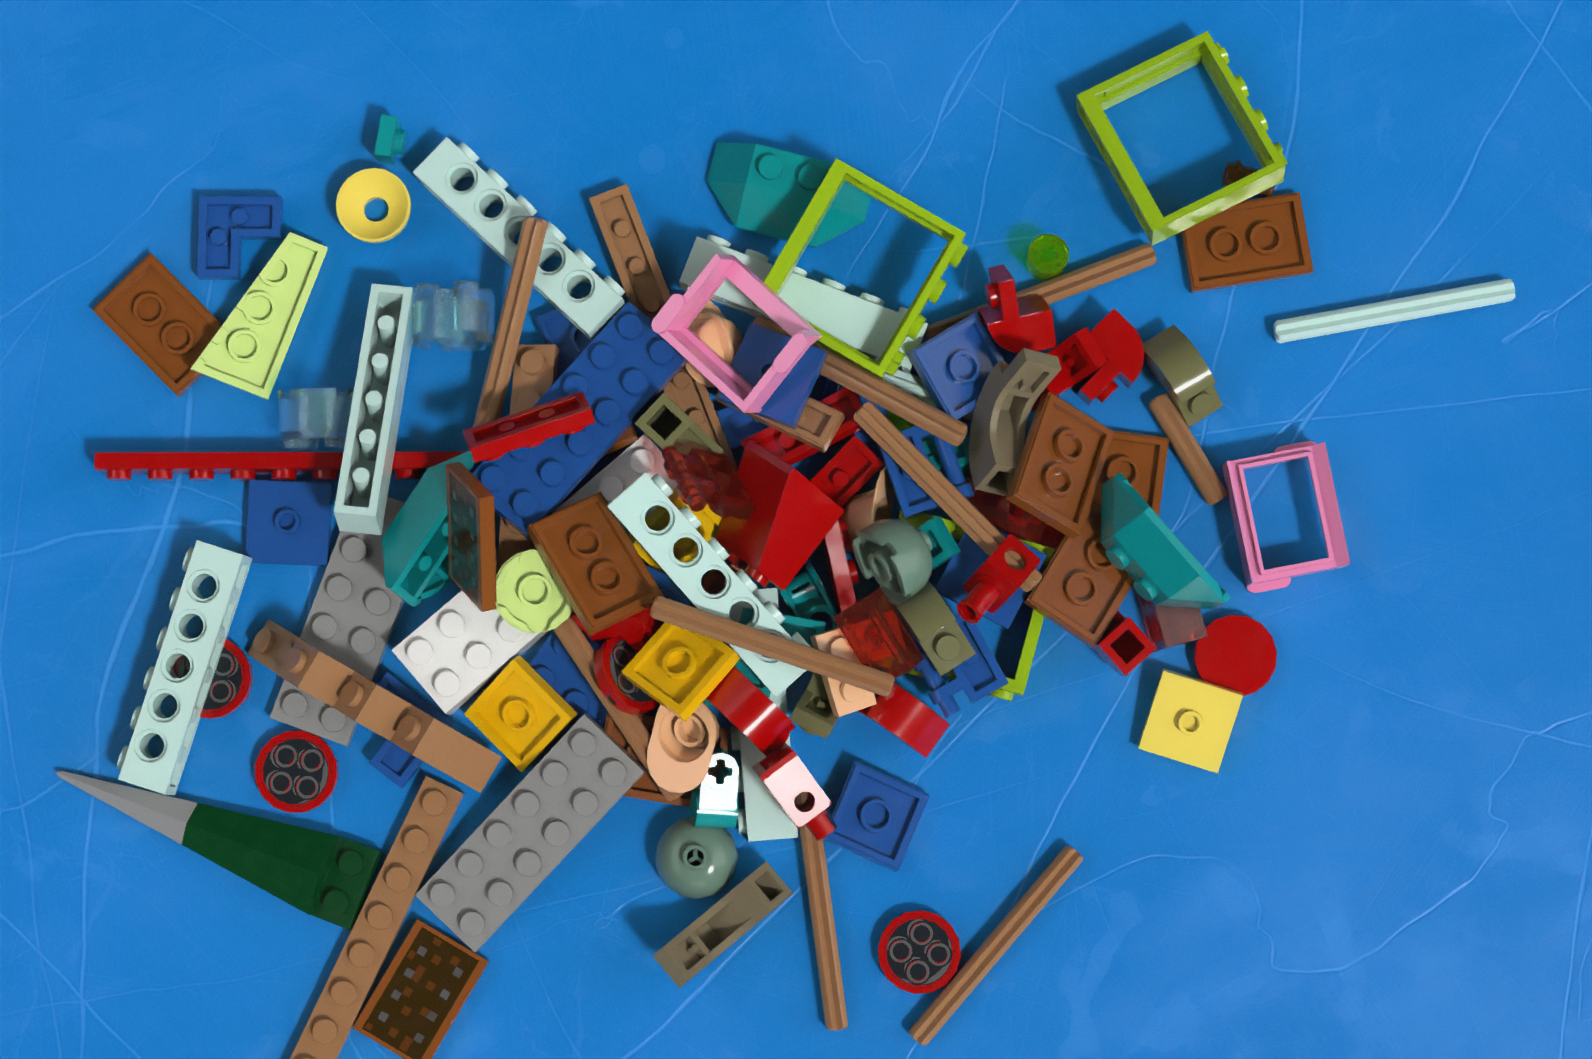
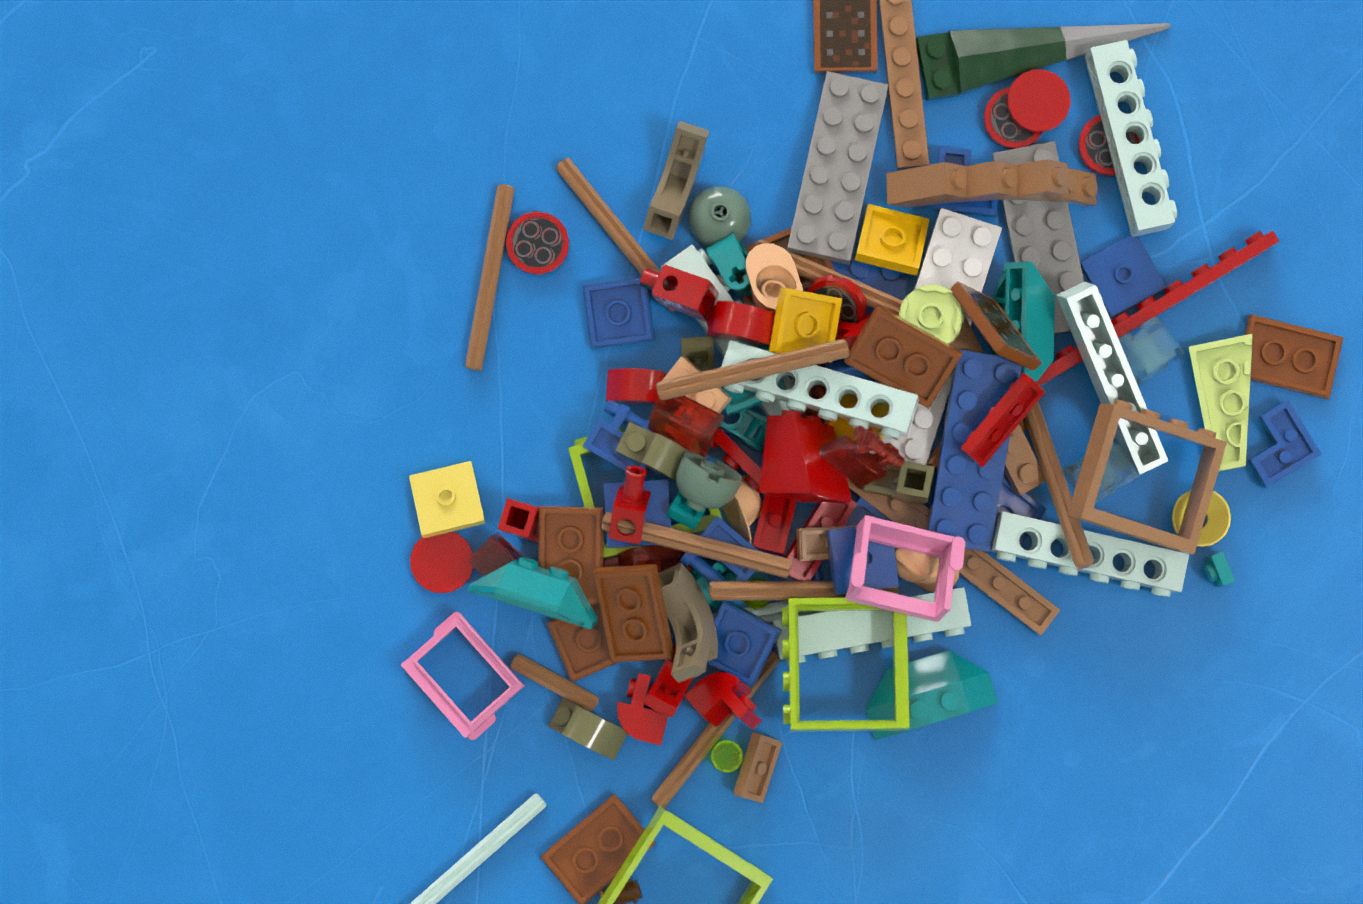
camera: 150 degrees right, 0 degrees up
(259, 772) = (1038, 101): none -> red tile
(450, 324) = (1096, 459): none -> medium nougat window
(1020, 225) = (757, 767): none -> medium nougat plate

